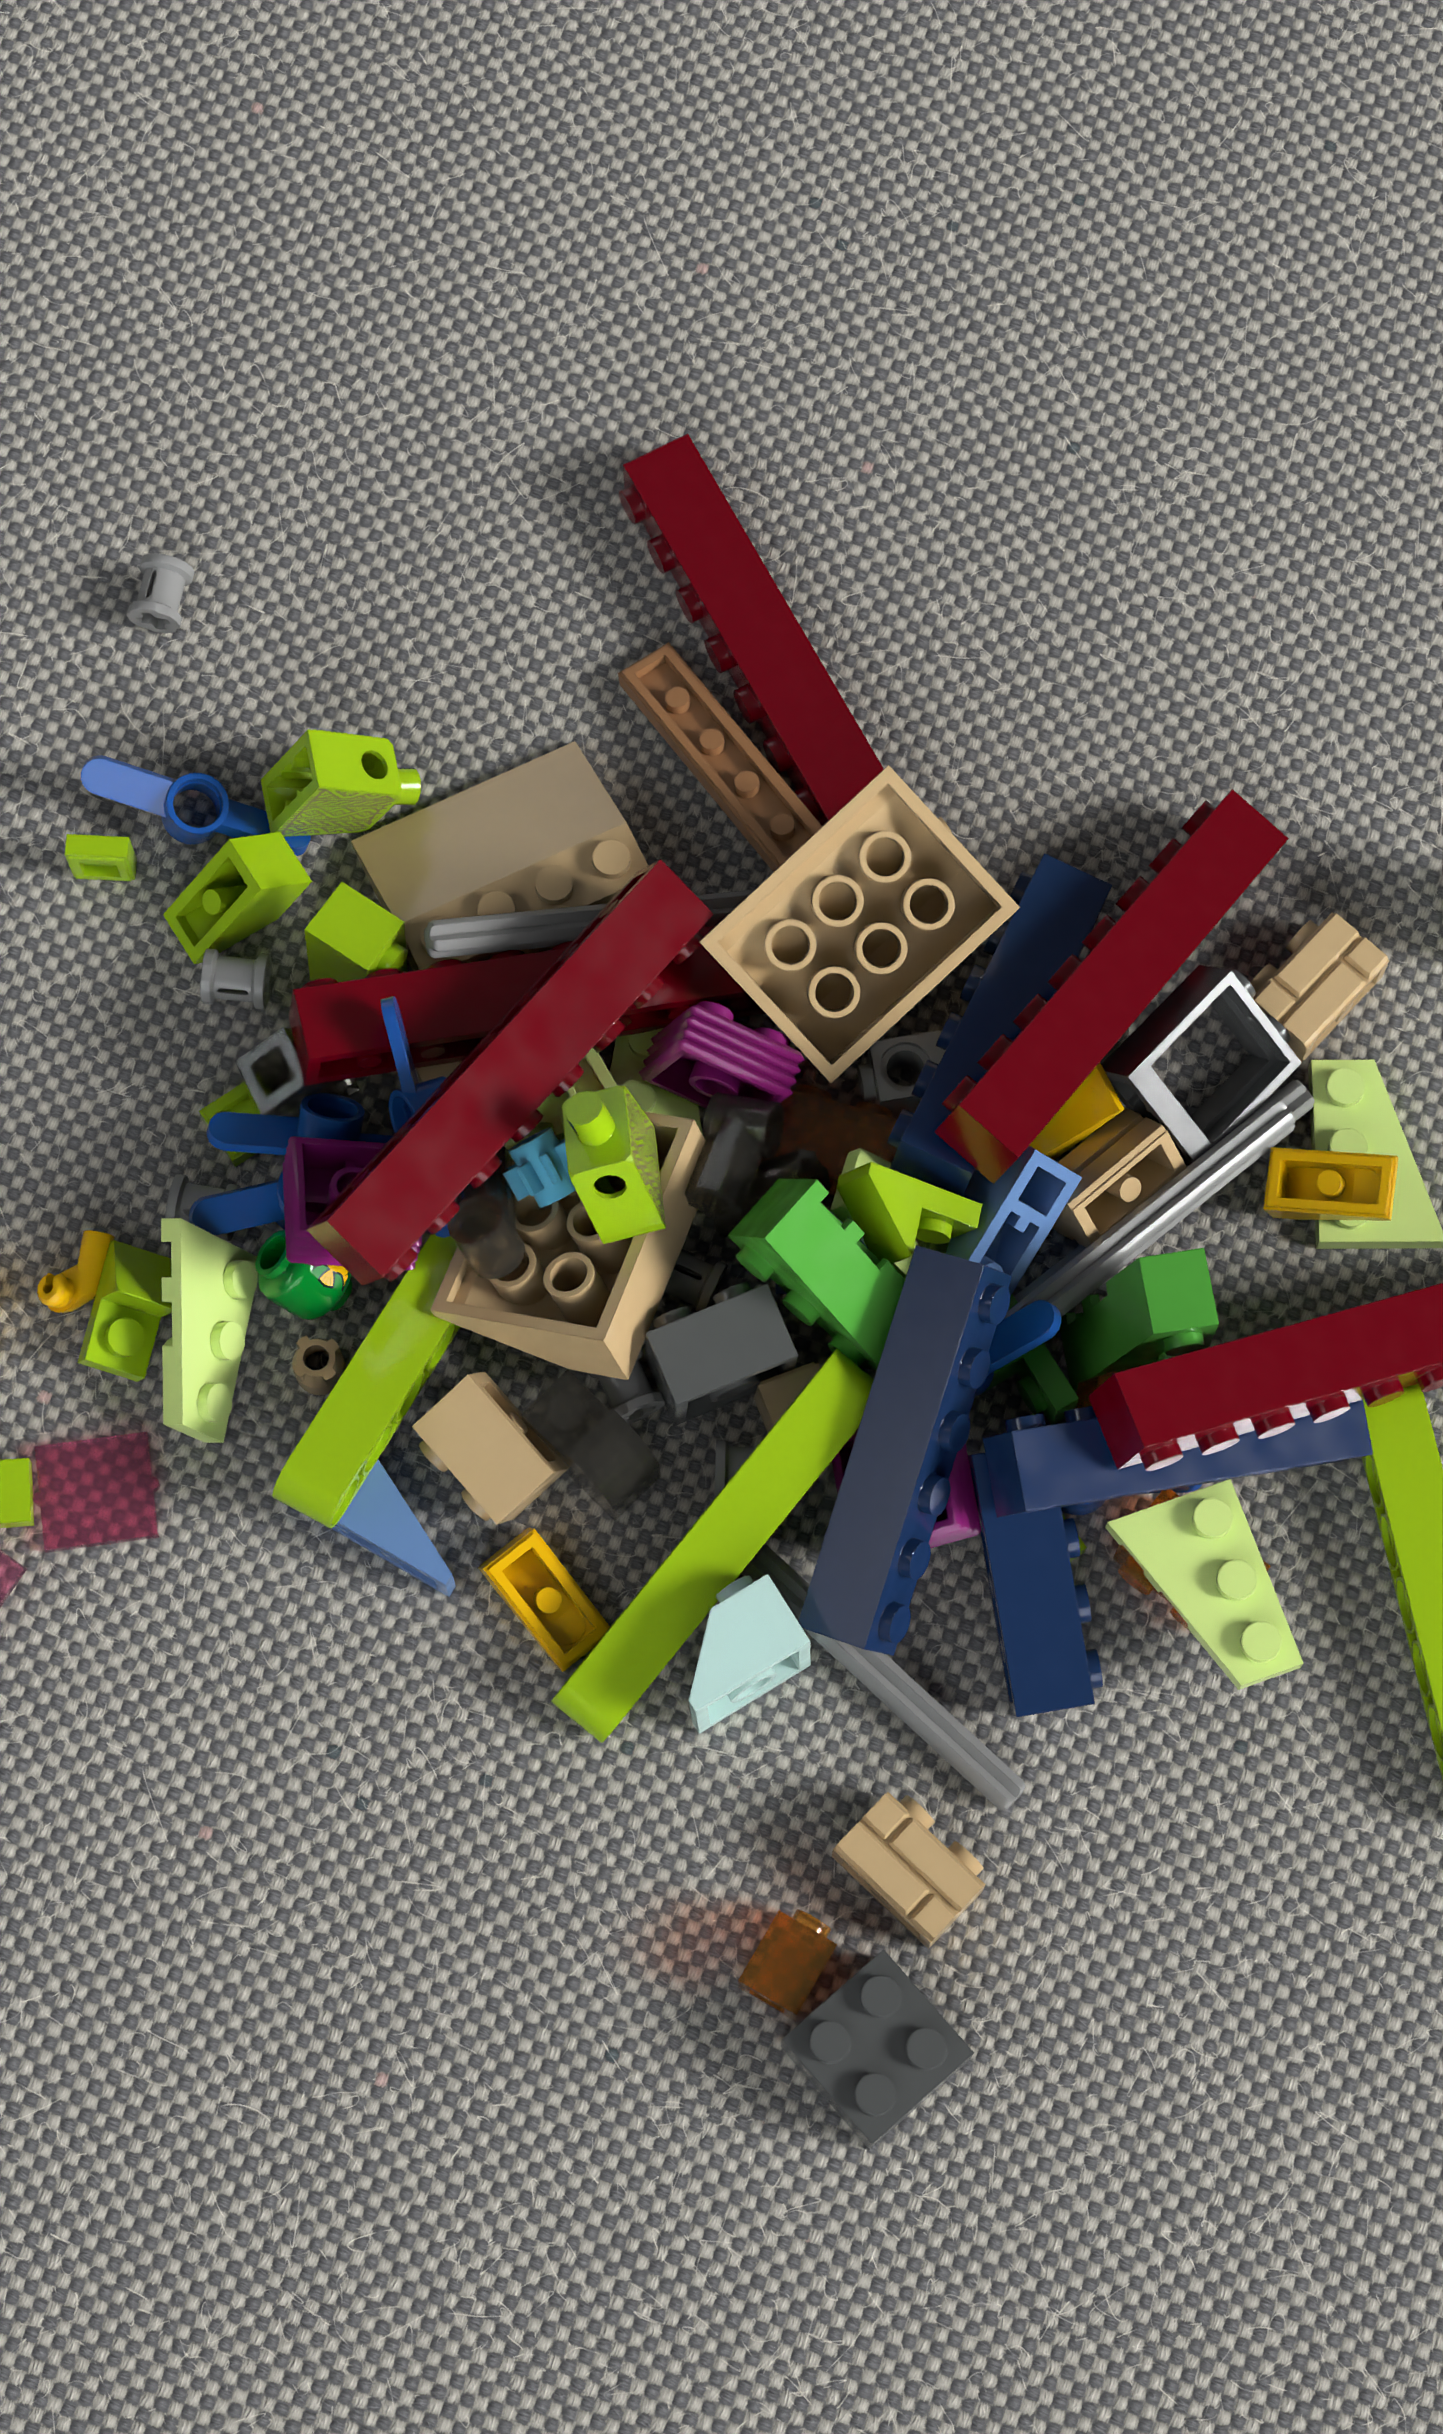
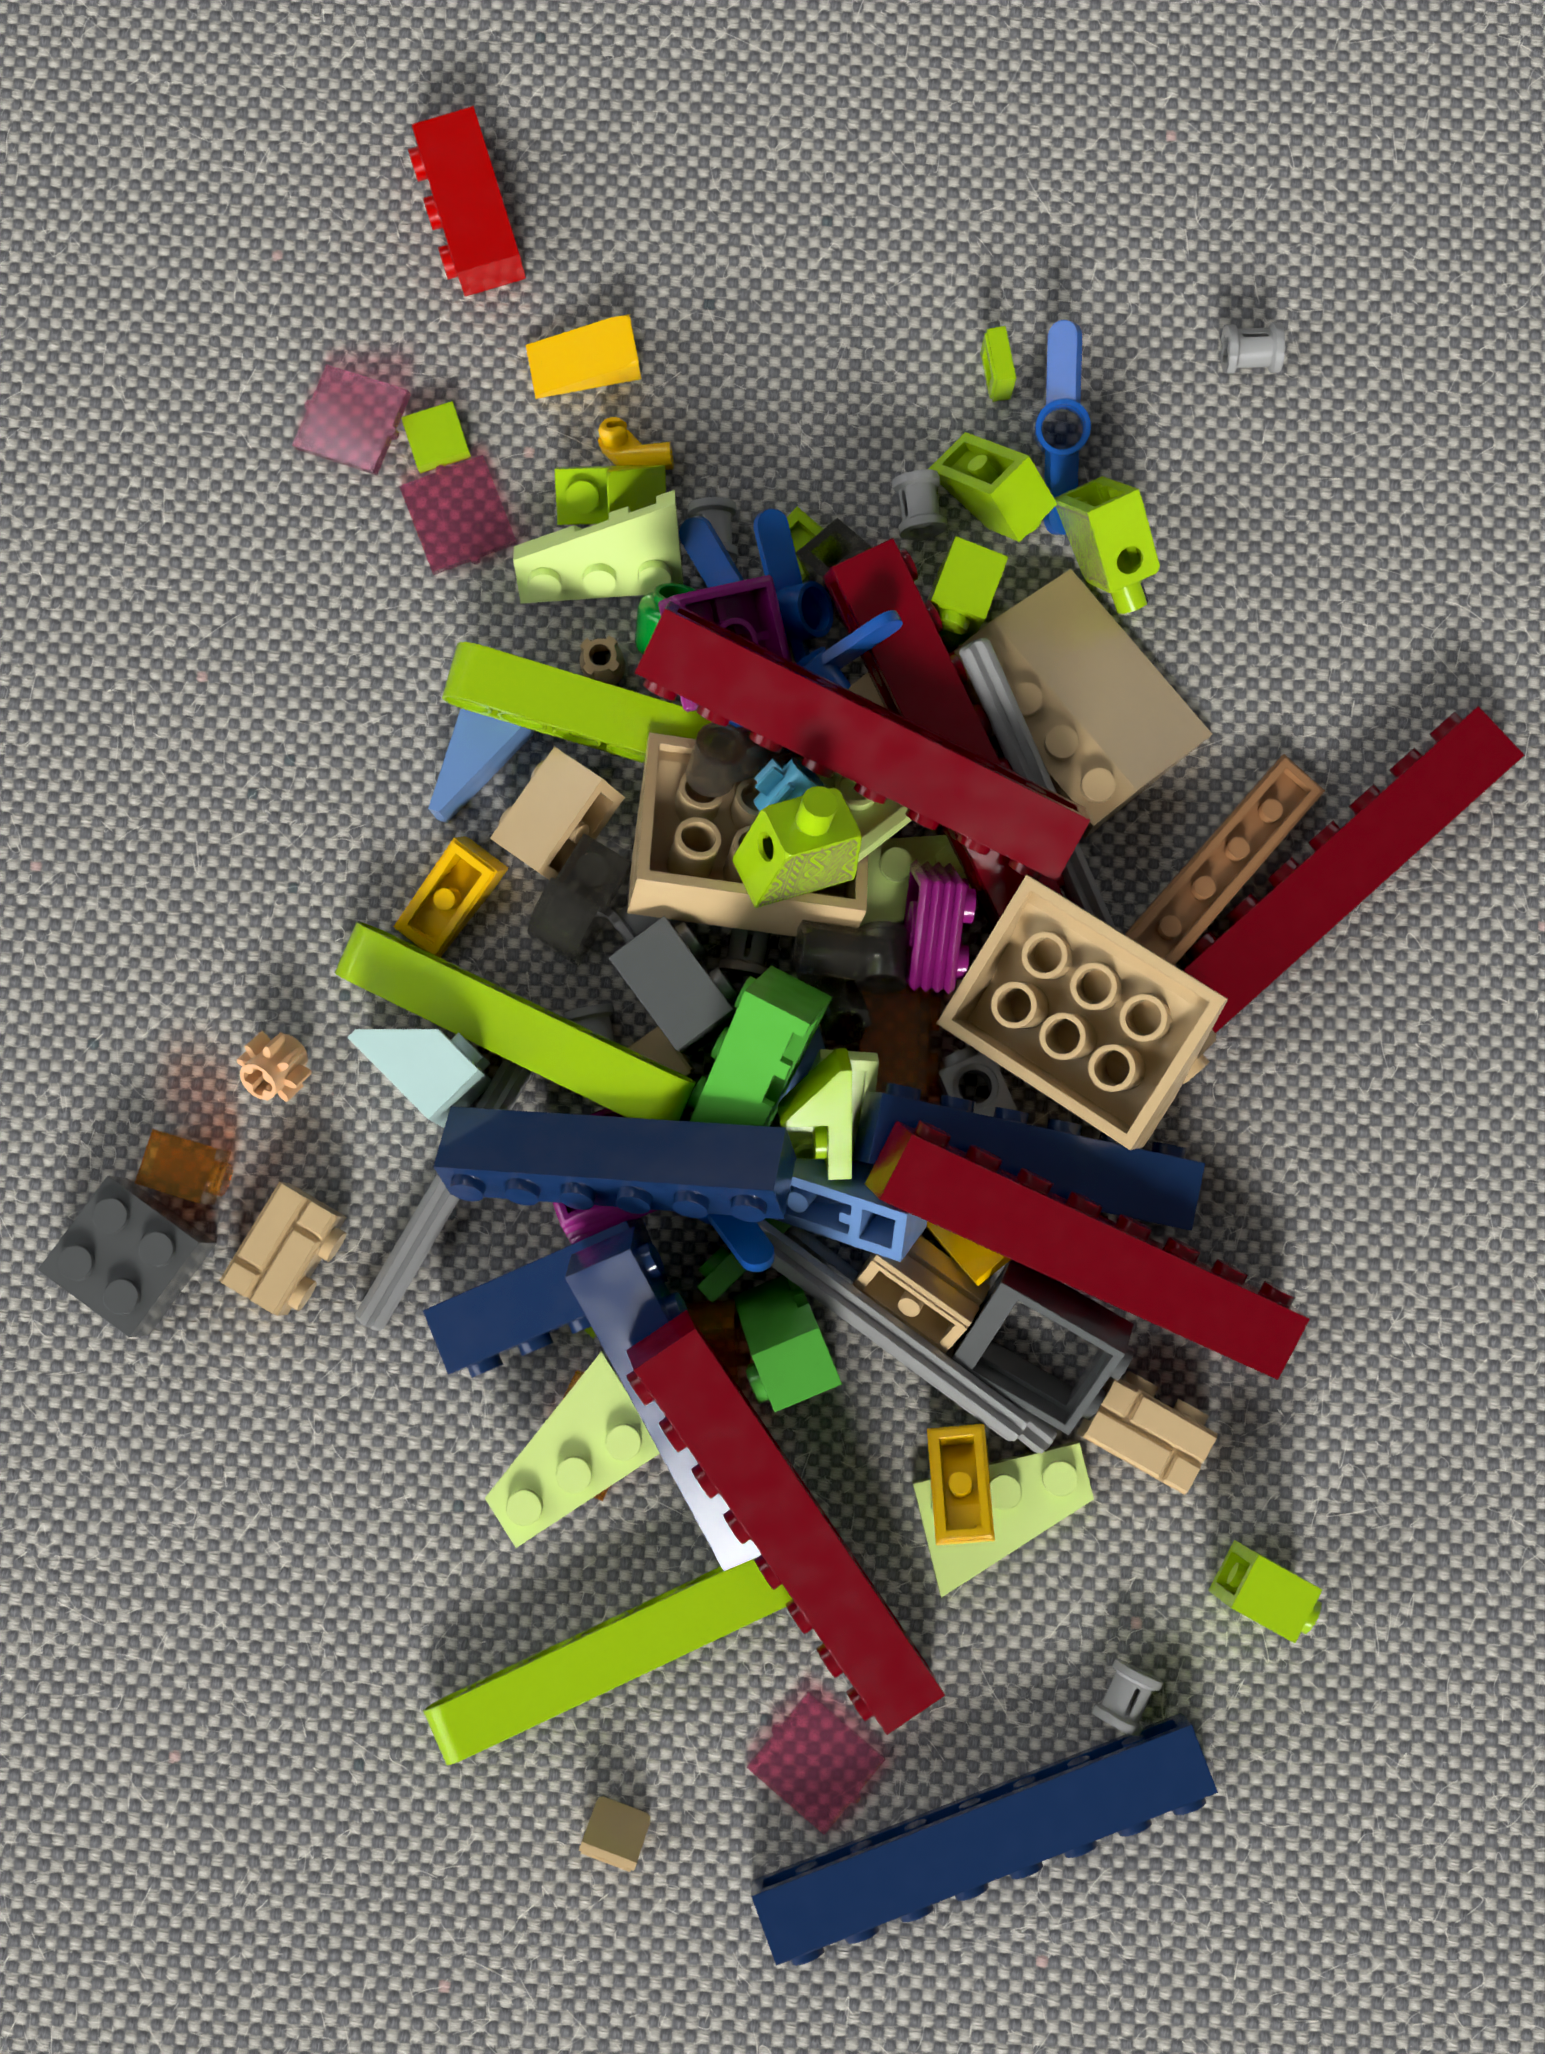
camera: 80 degrees right, 10 degrees up
(696, 1833) = (273, 1066): none -> light nougat gear

